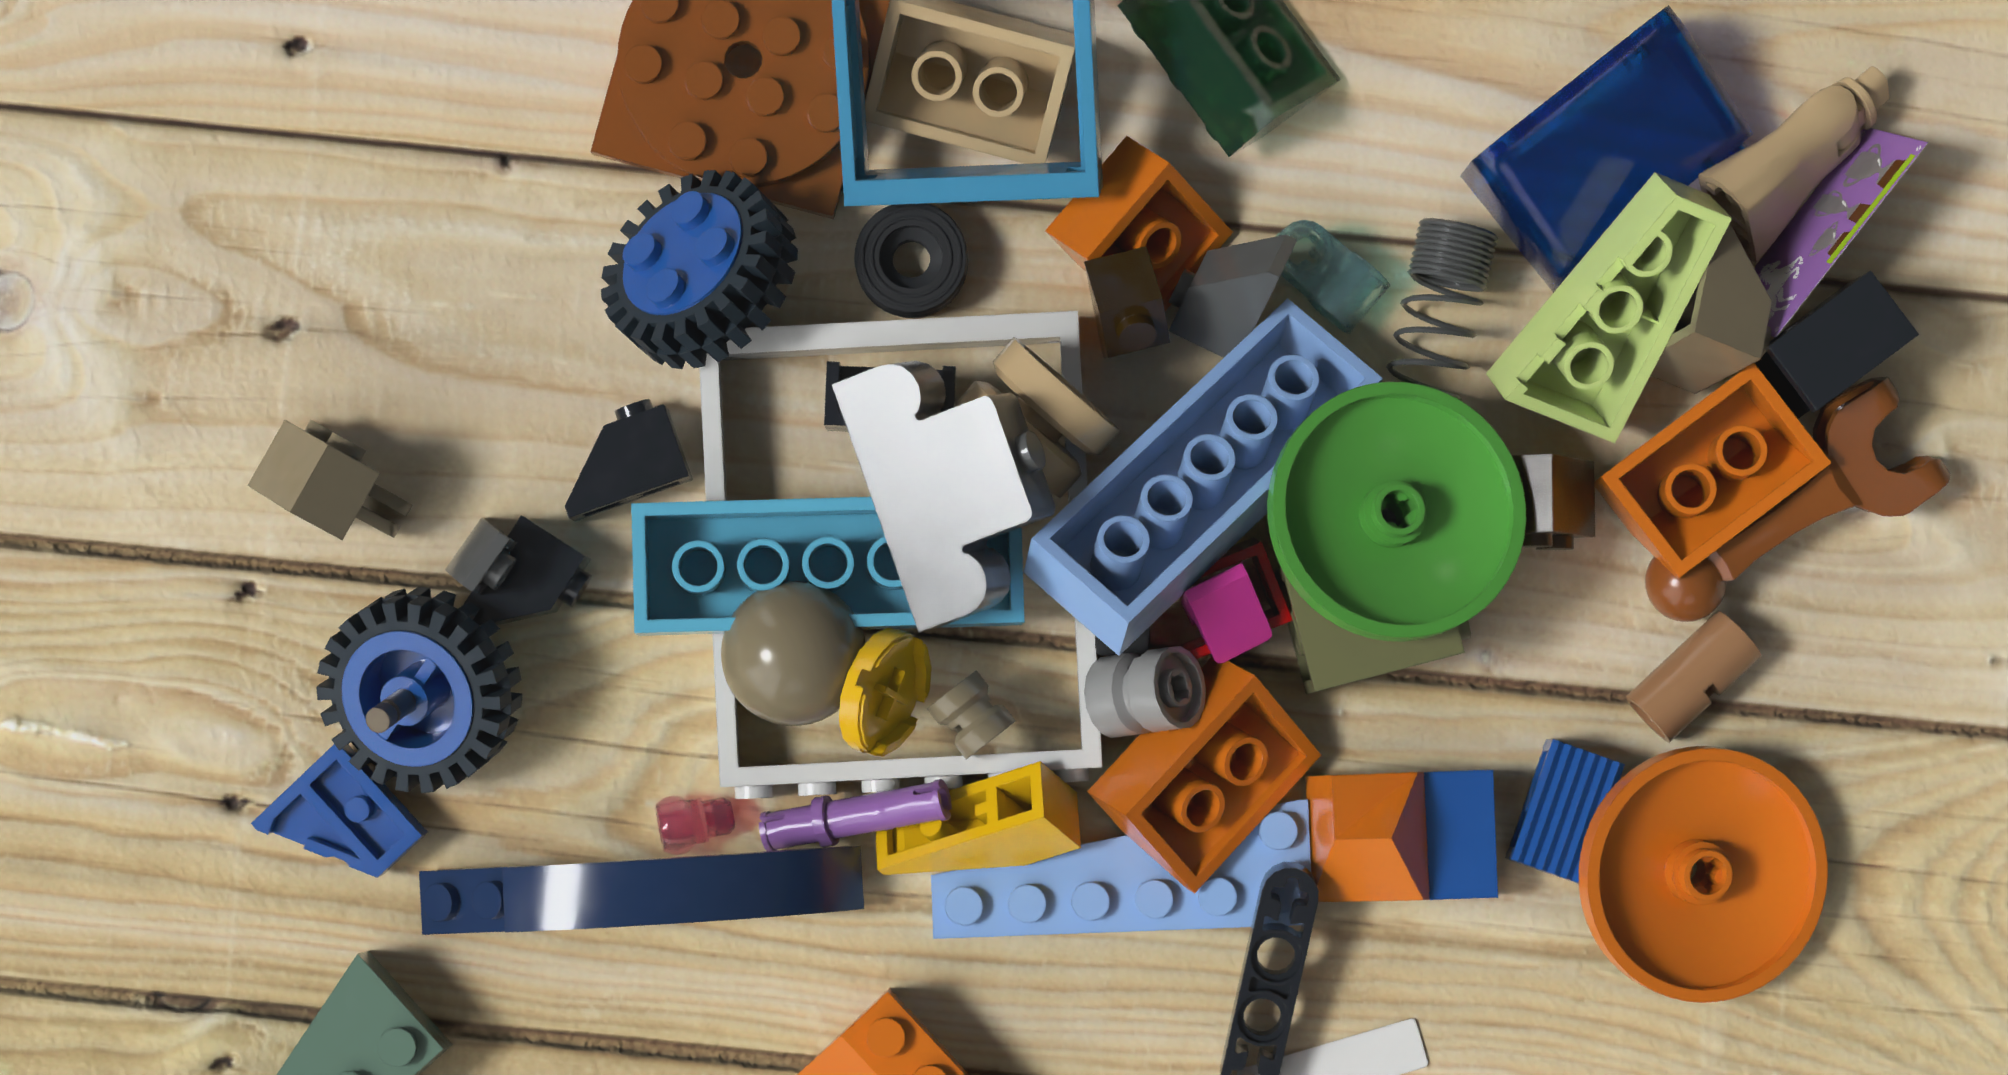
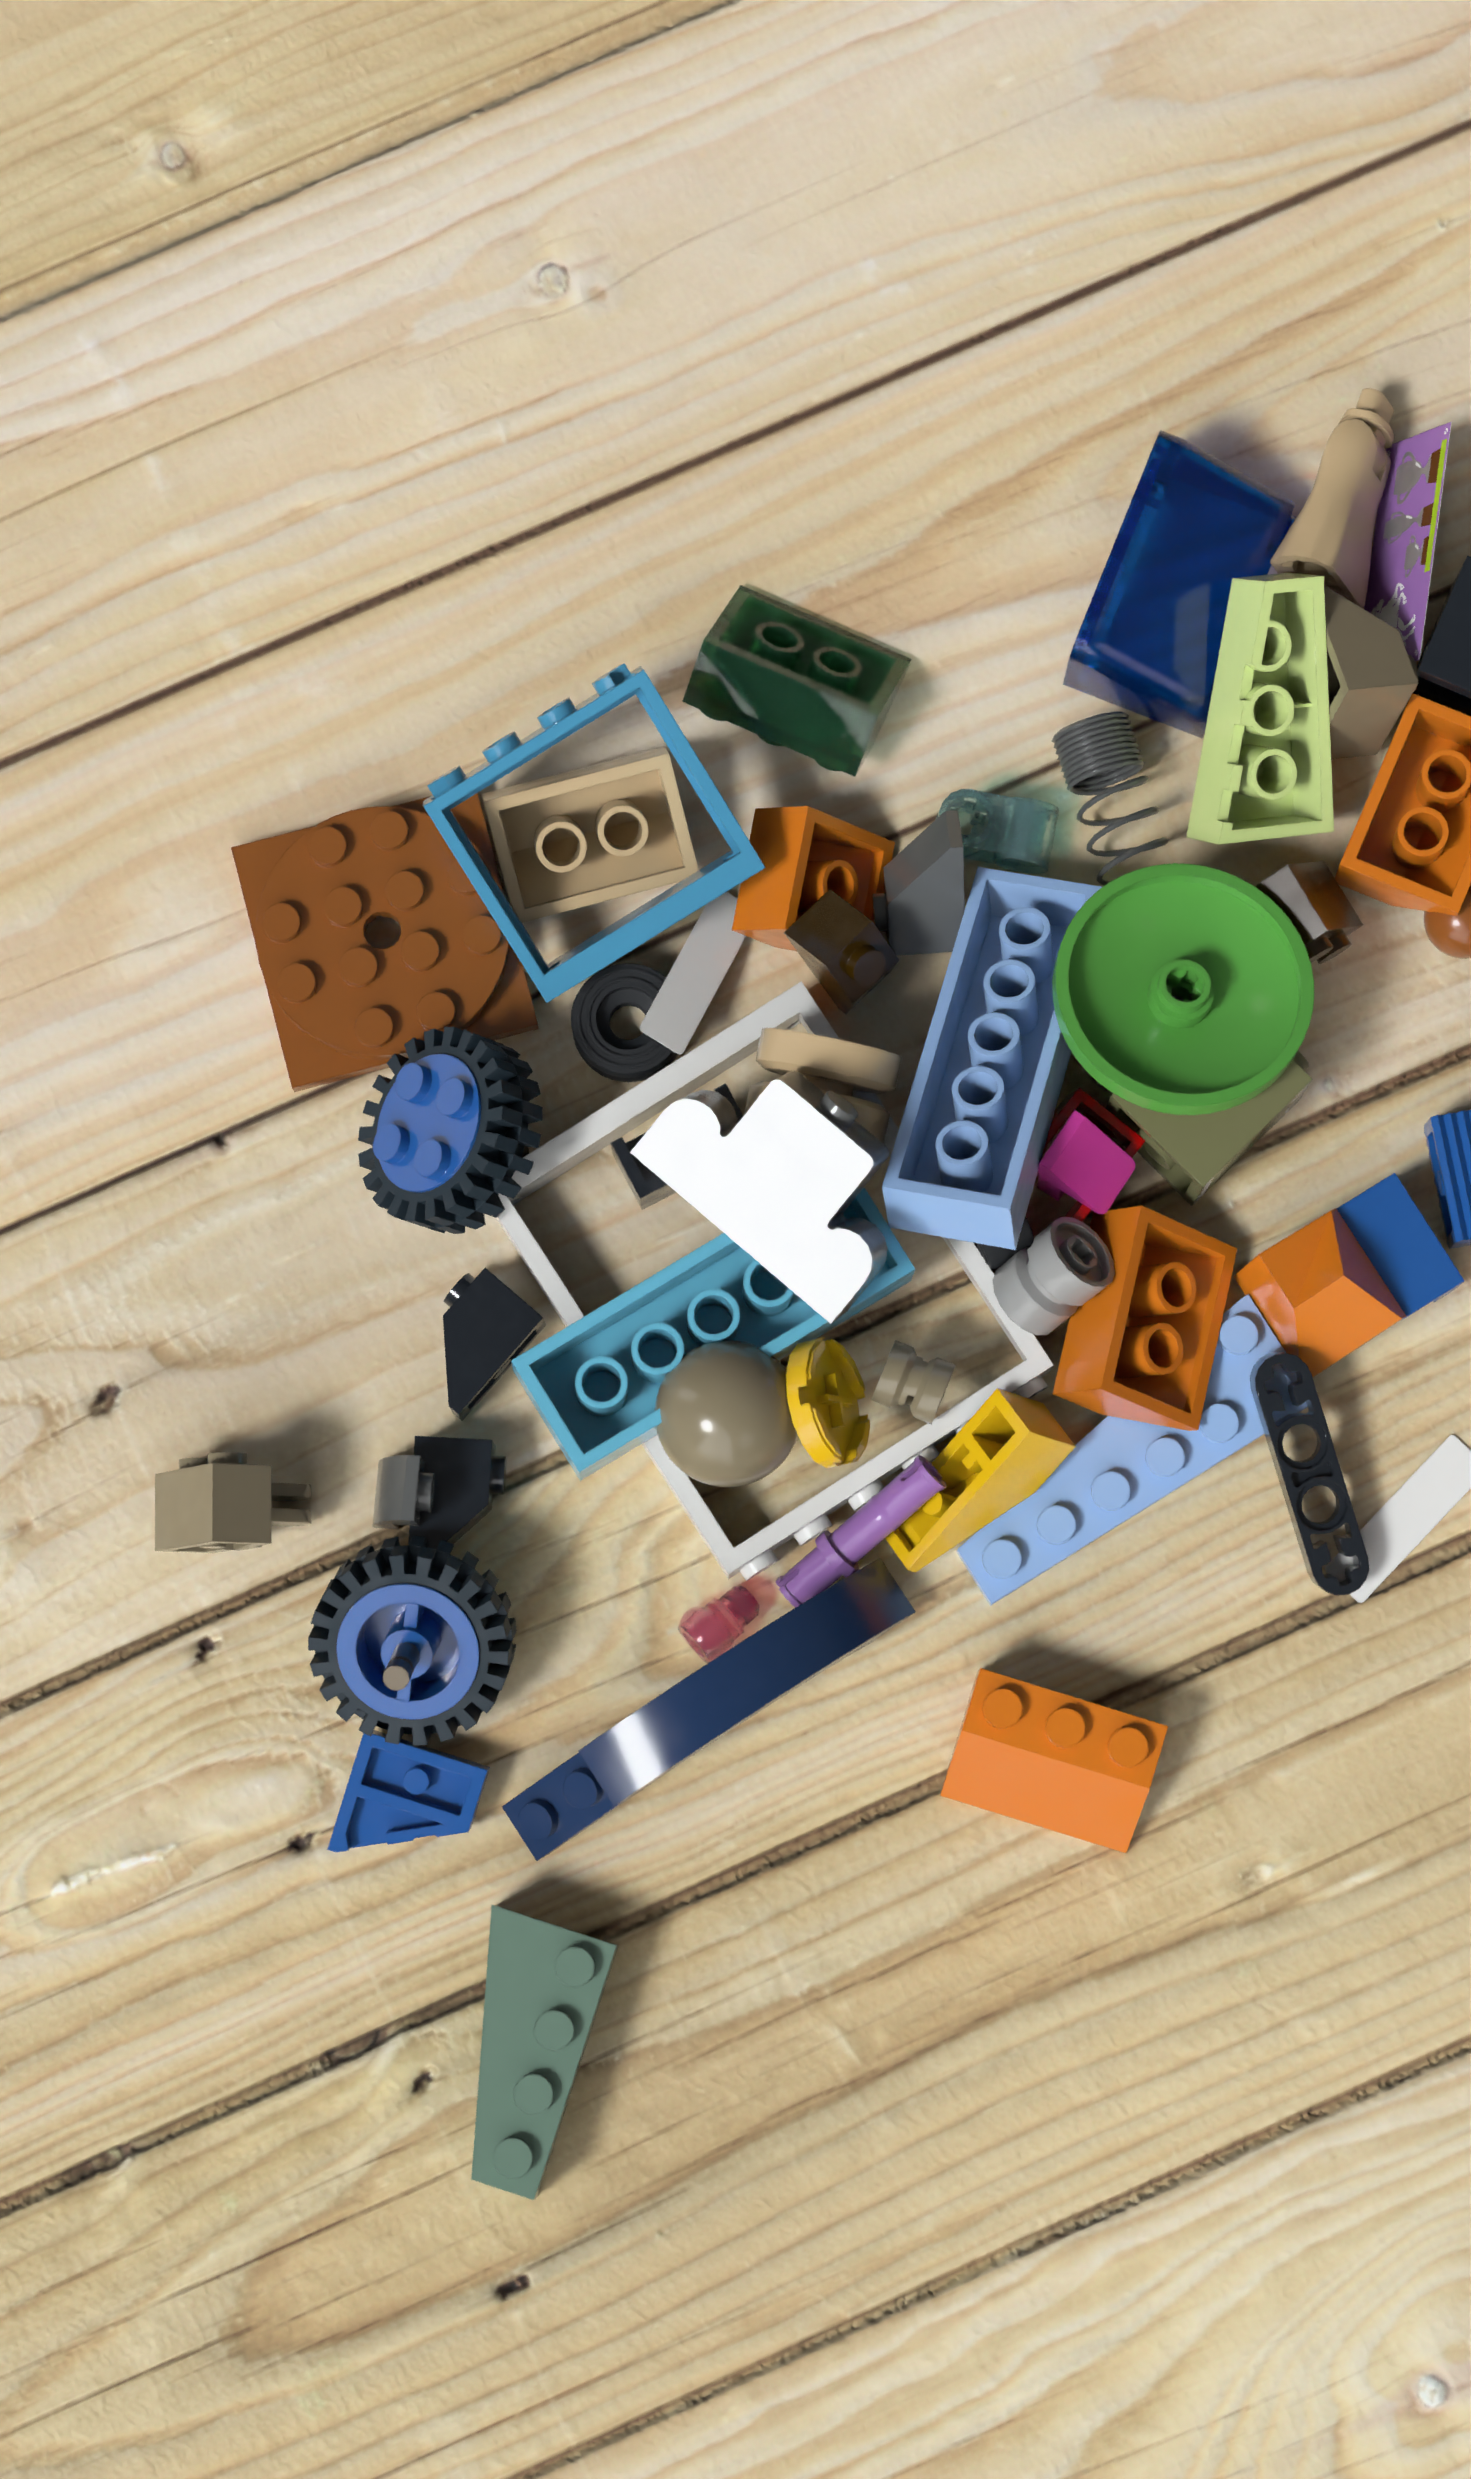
camera: 25 degrees left, 5 degrees down
(988, 254) = (694, 976): none -> white sticker

